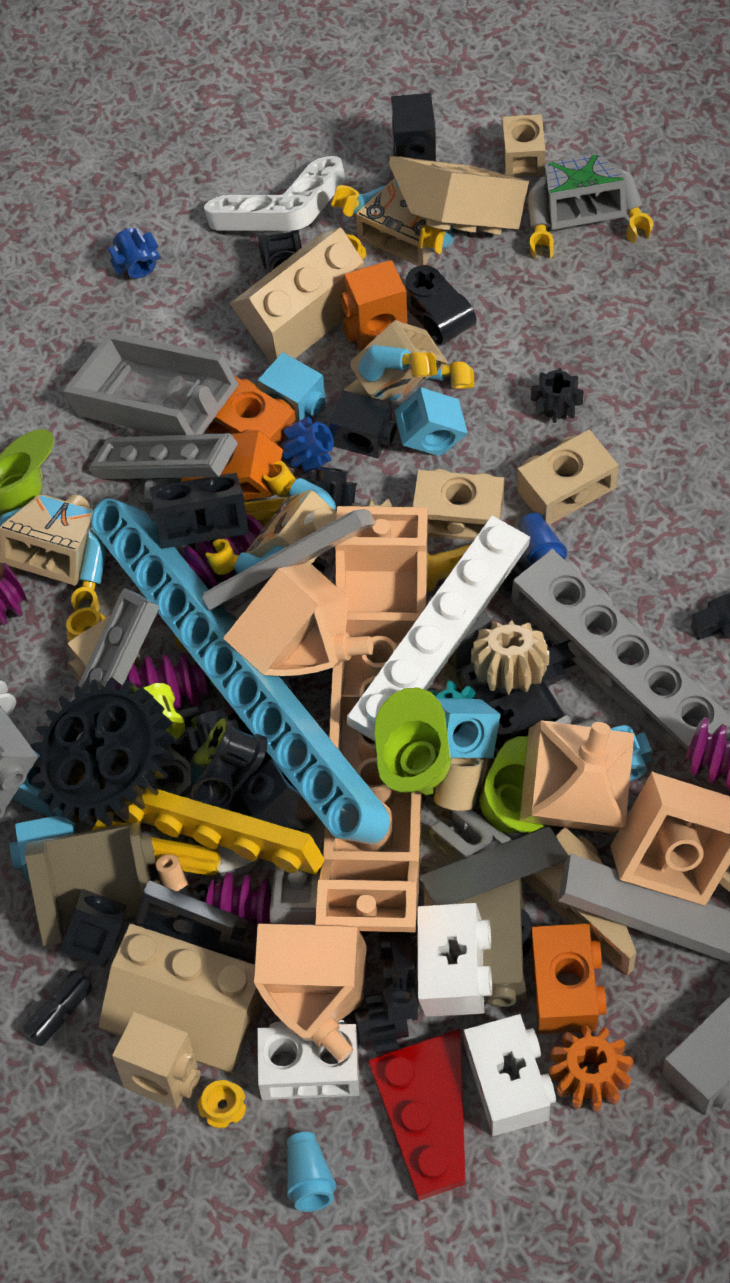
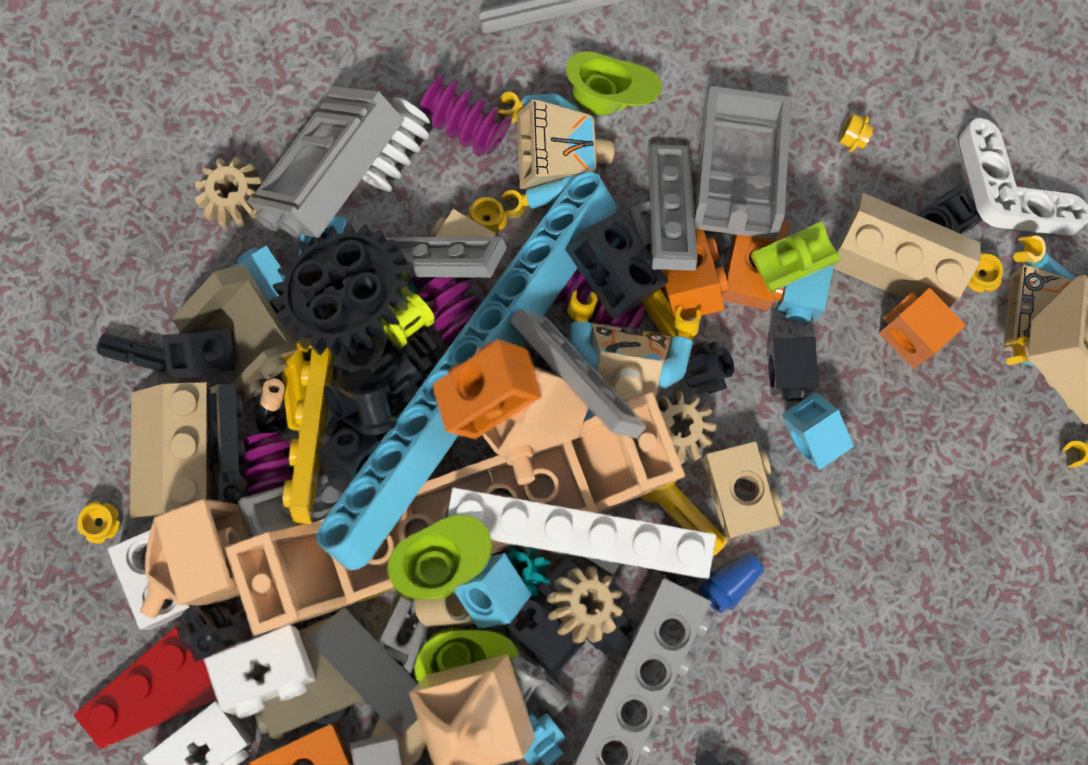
camera: 60 degrees right, 20 degrees up
(134, 253) = (894, 78): blue gear -> none
(156, 1061) = (96, 458): tan brick -> none
(166, 302) = (855, 132): none -> yellow plate
(264, 371) = (795, 257): none -> lime hips
(285, 603) = (486, 389): none -> orange brick
(307, 444) = (749, 327): blue gear -> none
(308, 1174) = (61, 617): medium azure cone -> none
(402, 360) = (867, 378): torso -> none
(437, 304) = (953, 388): black piece -> none
(557, 395) = (901, 524): black gear -> none
(590, 472) = (840, 583): tan brick -> none

